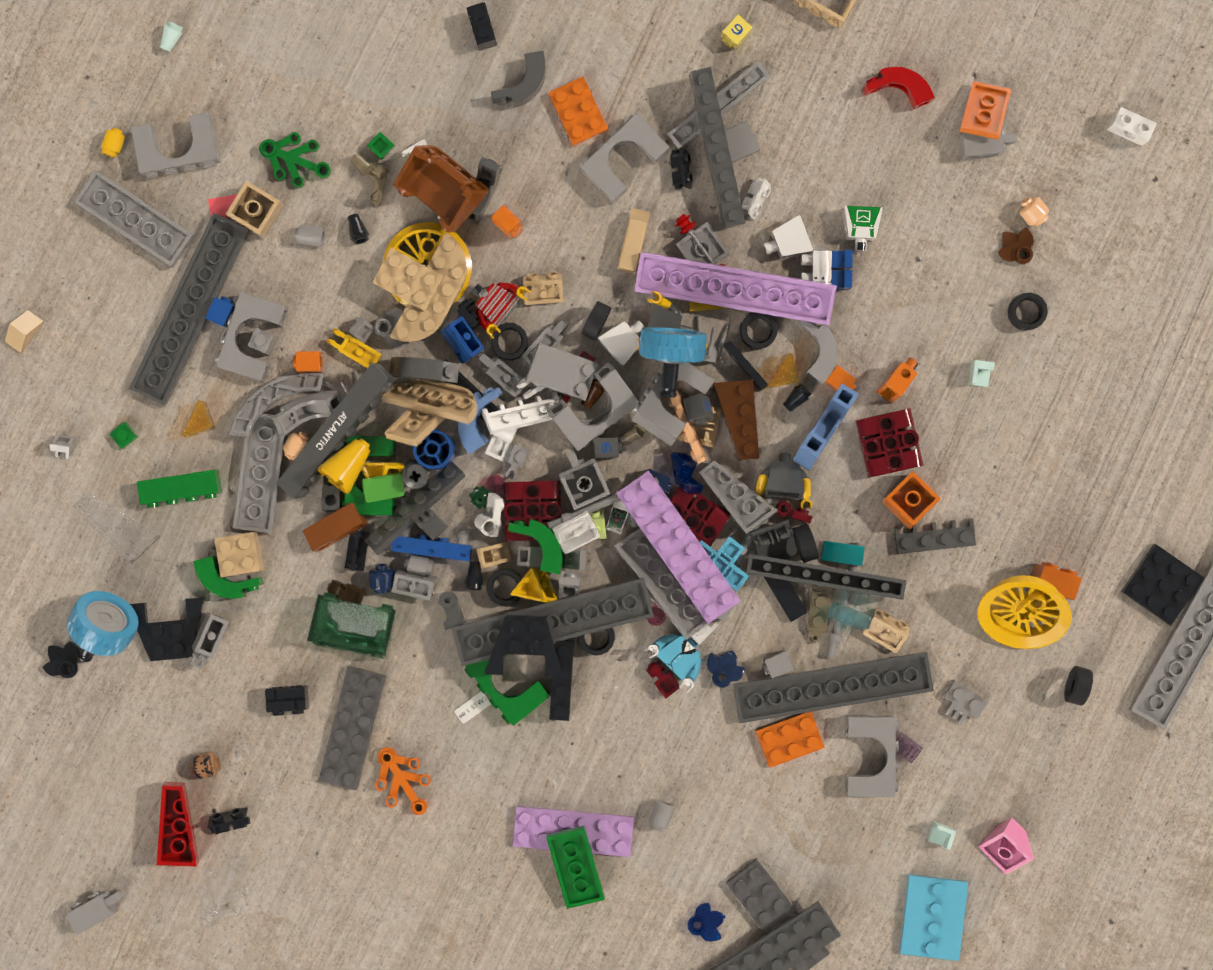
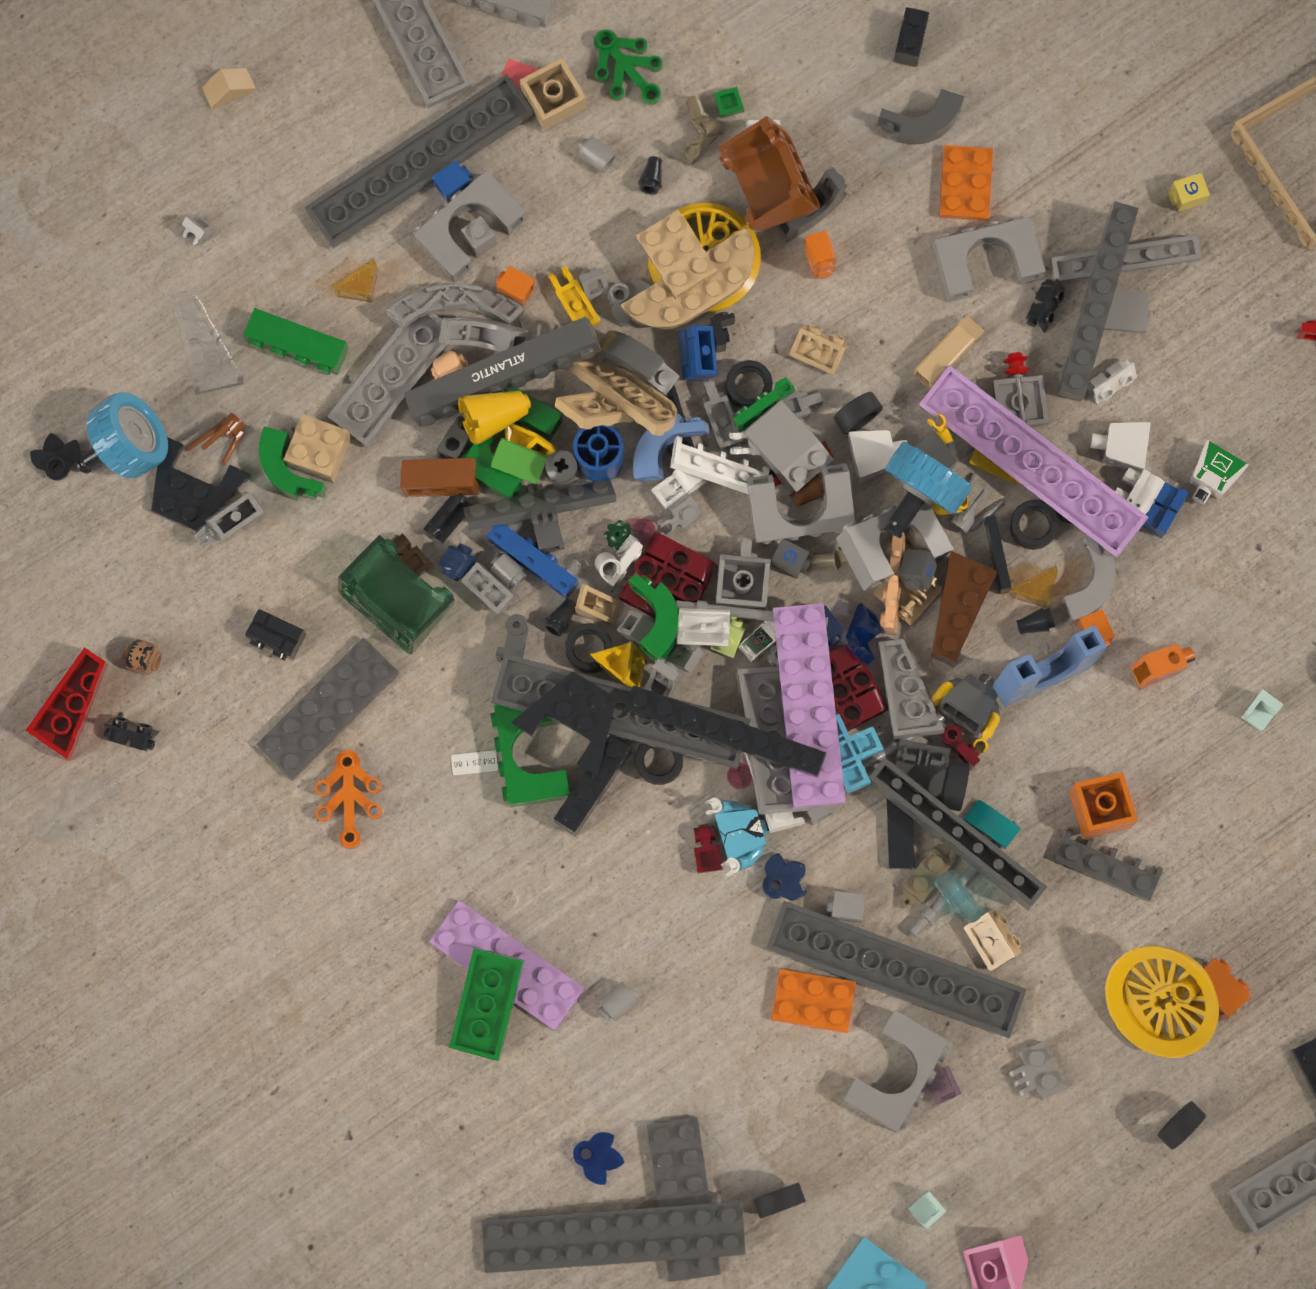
camera: 30 degrees right, 10 degrees down
(123, 435) = (268, 254): green plate -> none
(168, 572) = (228, 426): none -> dark orange plant
(497, 304) = (759, 336): torso -> none
(528, 351) = (748, 415): none -> green hinge
(633, 598) = (725, 731): none -> black plate
(842, 886) = (779, 1200): none -> black tyre
(872, 426) = (1126, 752): dark red connector -> none

